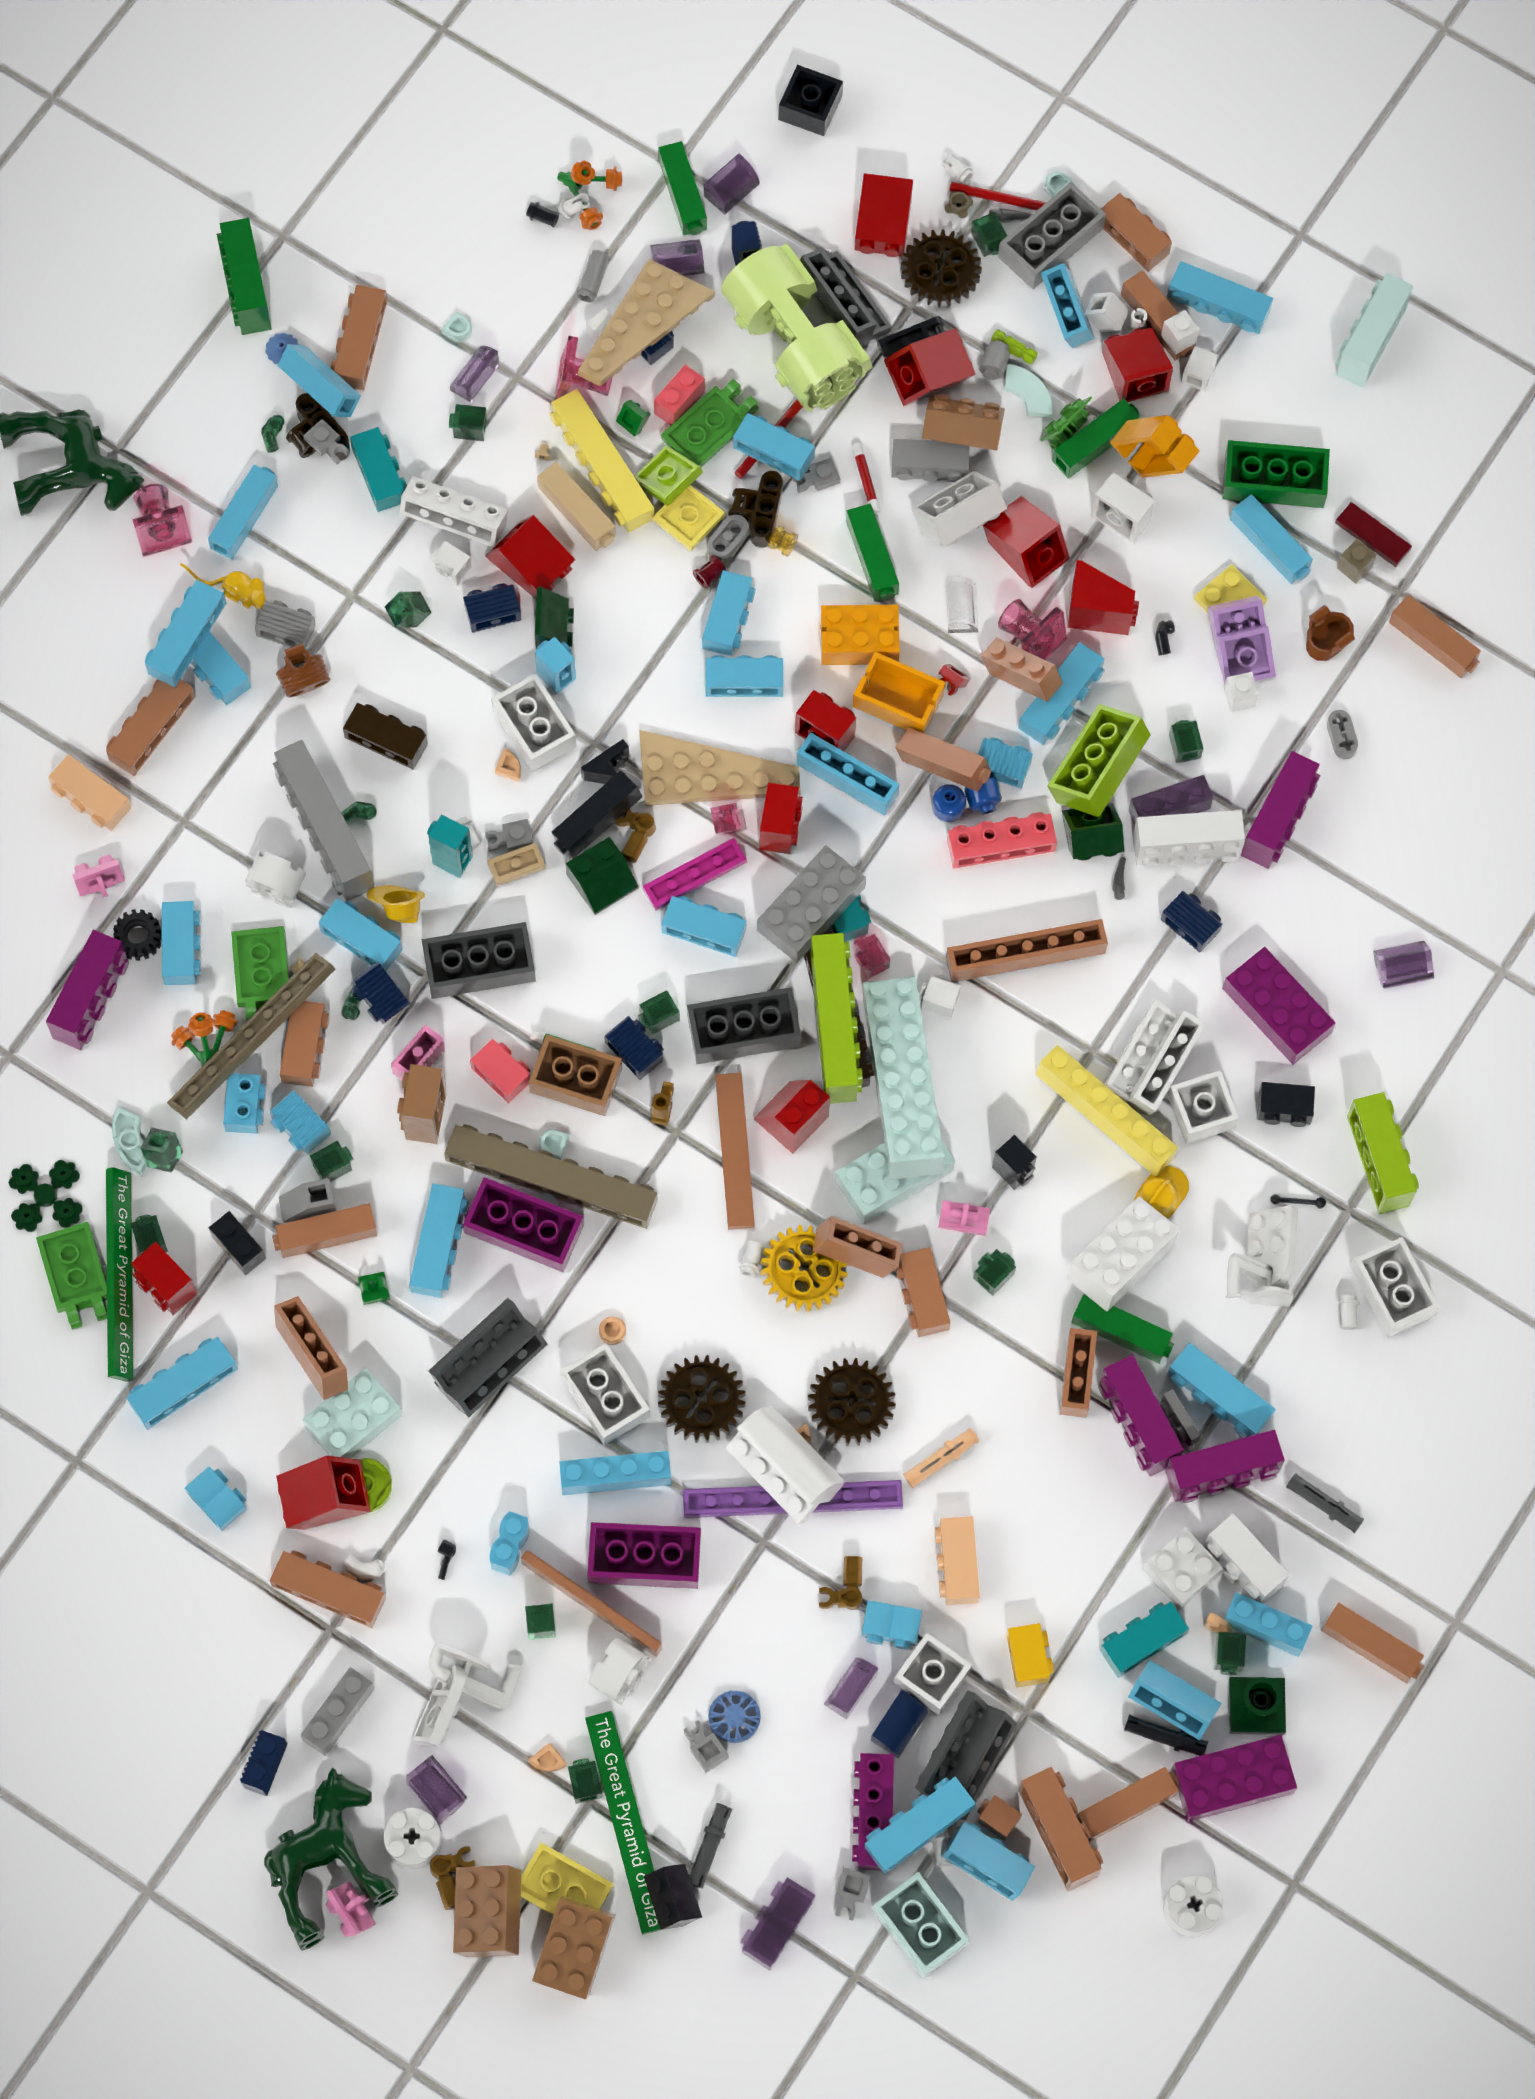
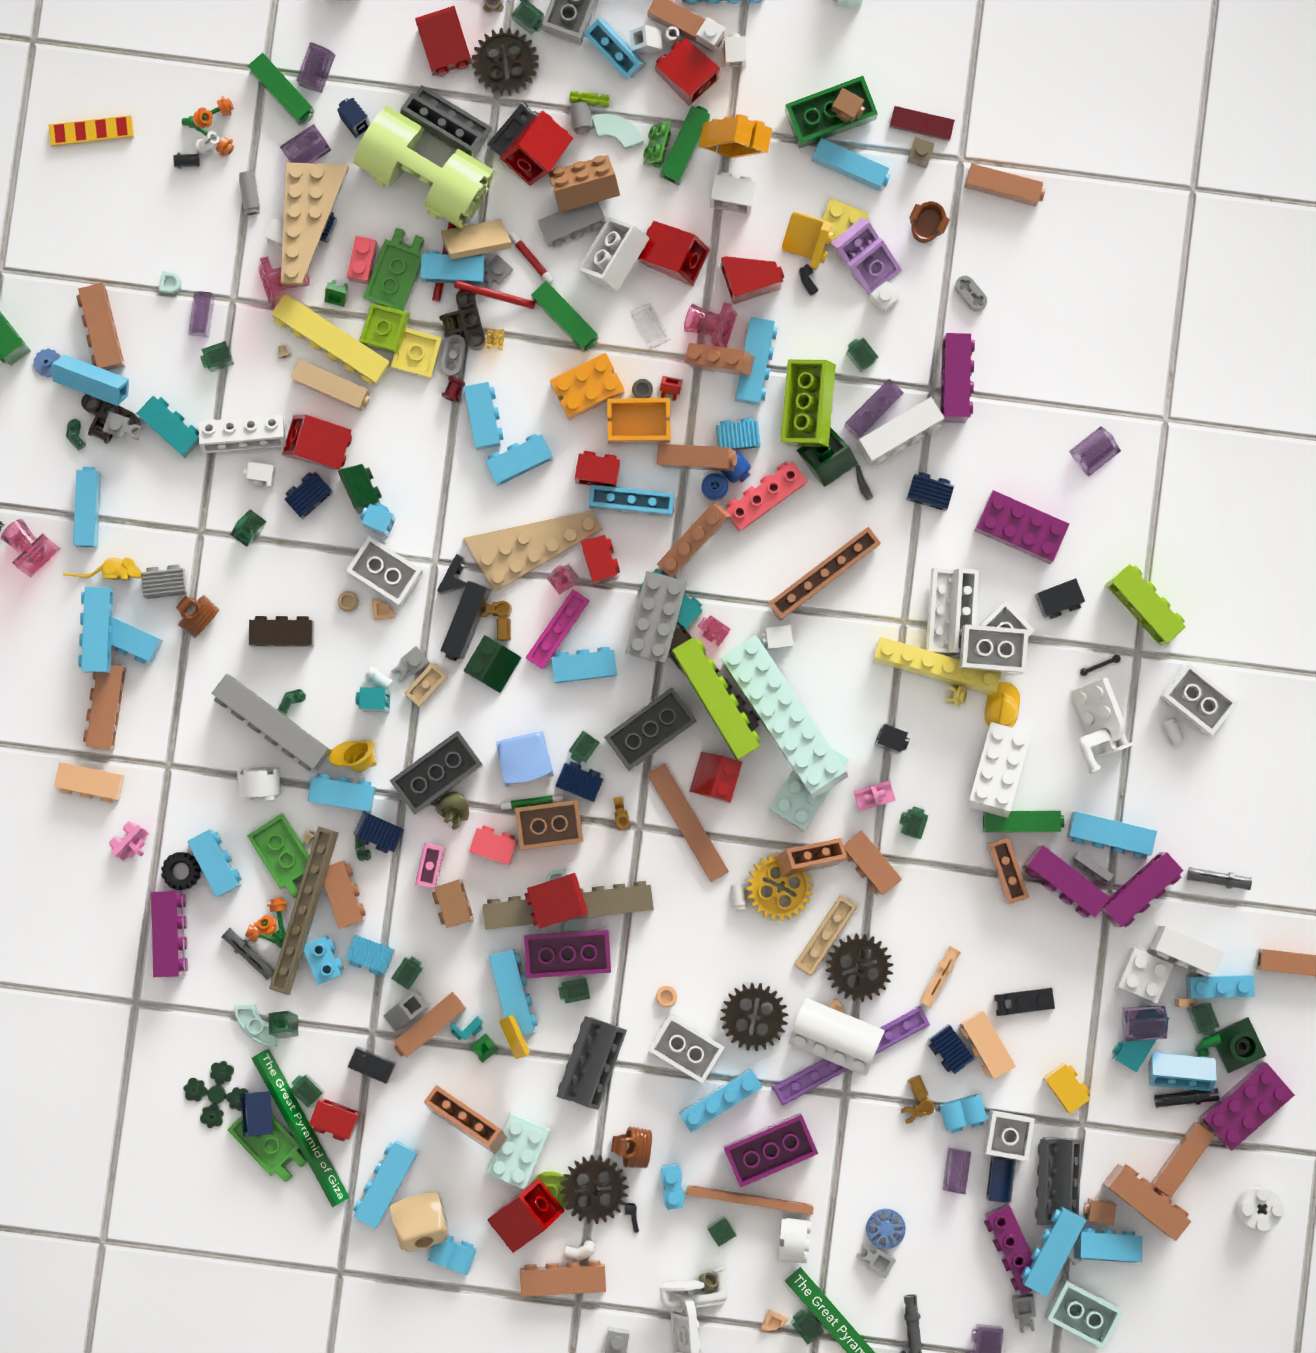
camera: 30 degrees left, 15 degrees up
(78, 1232) = (256, 1113): none -> dark blue brick
(155, 1032) = (248, 953): none -> dark grey pin
(198, 1438) = (419, 1221): none -> tan piece
(370, 1258) = (473, 1028): none -> teal bracket
(415, 1283) = (514, 1037): none -> yellow slope
(427, 1481) = (593, 1169): none -> dark brown gear
(456, 141) = (91, 130): none -> tile
(476, 738) = (348, 601): none -> tan plate
(478, 1008) = (454, 808): none -> olive piece
(494, 1675) = (710, 1282): none -> dark tan plate
(496, 1476) = (639, 1147): none -> dark orange piece
(510, 1271) = (574, 990): none -> clear green brick
(541, 1153) = (556, 901): none -> red slope
(585, 989) = (524, 758): none -> light blue piece
(809, 496) = (494, 294): none -> red bar
(814, 427) = (476, 239): none -> tan tile
(830, 1348) = (825, 935): none -> tan tile
(898, 843) = (694, 539): none -> nougat brick
(913, 1545) = (951, 1049): none -> dark blue brick
(921, 663) = (642, 388): none -> dark grey tile
(1026, 1534) = (1025, 1001): none -> black plate
(1117, 1156) = (959, 697): none -> light yellow plate
(1156, 1617) = (1144, 1023): none -> clear purple brick
(1180, 1109) = (993, 648): none -> white brick
(1184, 590) = (807, 237): none -> yellow bracket
(1220, 1682) = (1206, 1043): none -> green arm
(1296, 469) = (848, 106): none -> medium nougat brick

